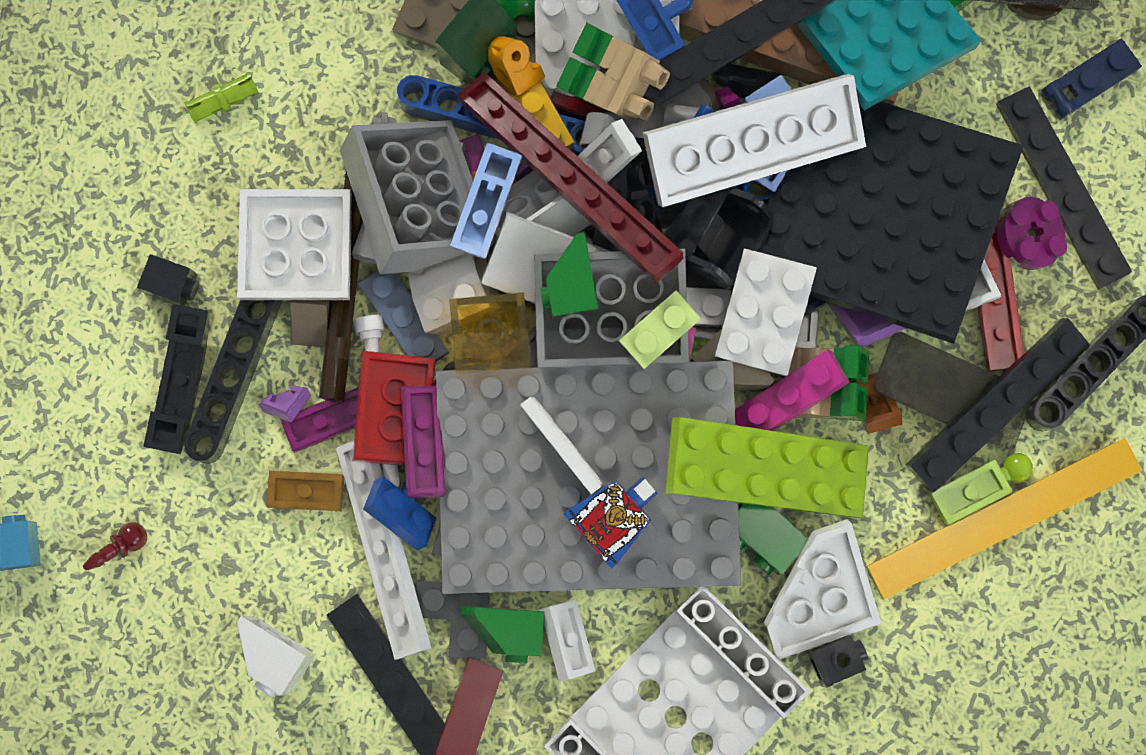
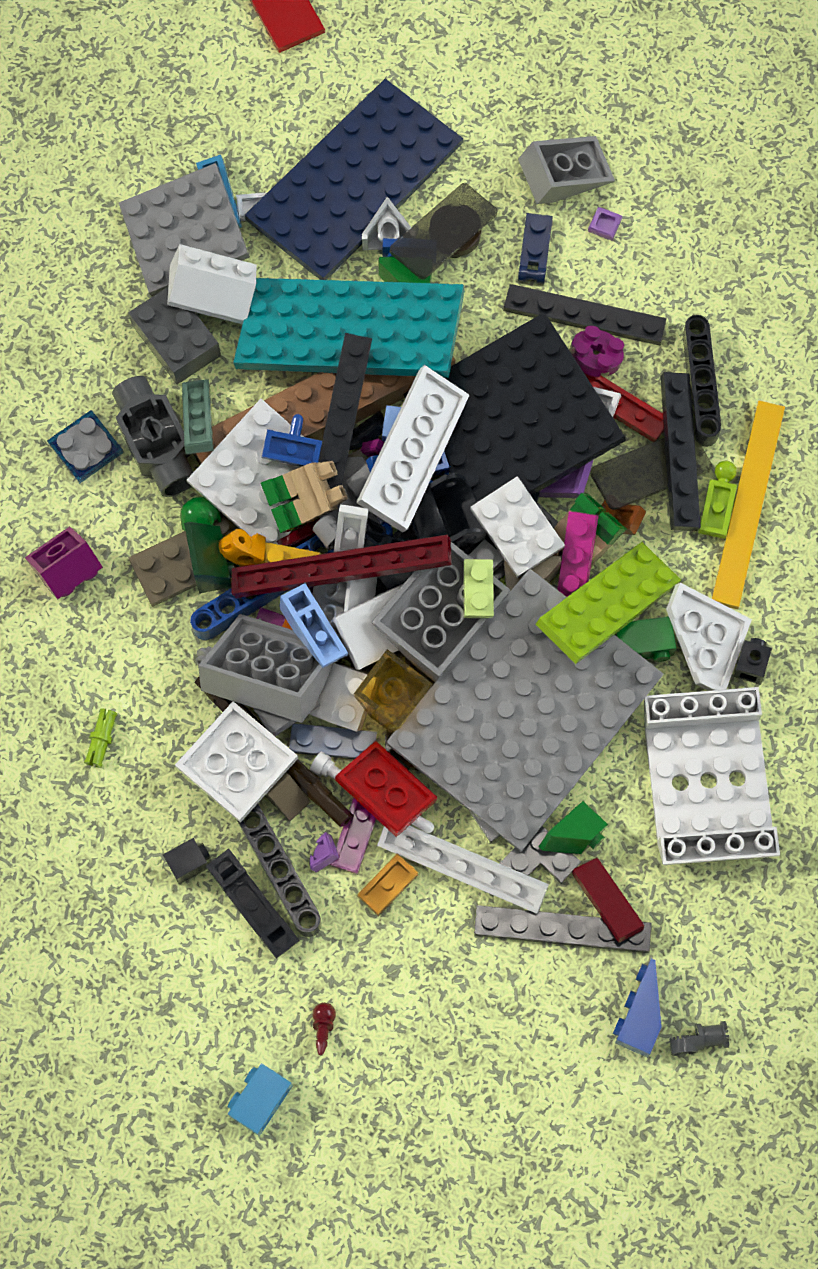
camera: 45 degrees left, 10 degrees down
(272, 657) = (474, 980): white slope -> none
(399, 513) = (447, 835): blue plate -> none
(422, 442) = (421, 785): magenta tile -> none
(562, 444) = (496, 701): white tile -> none
(567, 640) = (611, 804): white plate -> none
(570, 281) = (408, 611): green slope -> none
(613, 518) = (564, 709): torso -> none

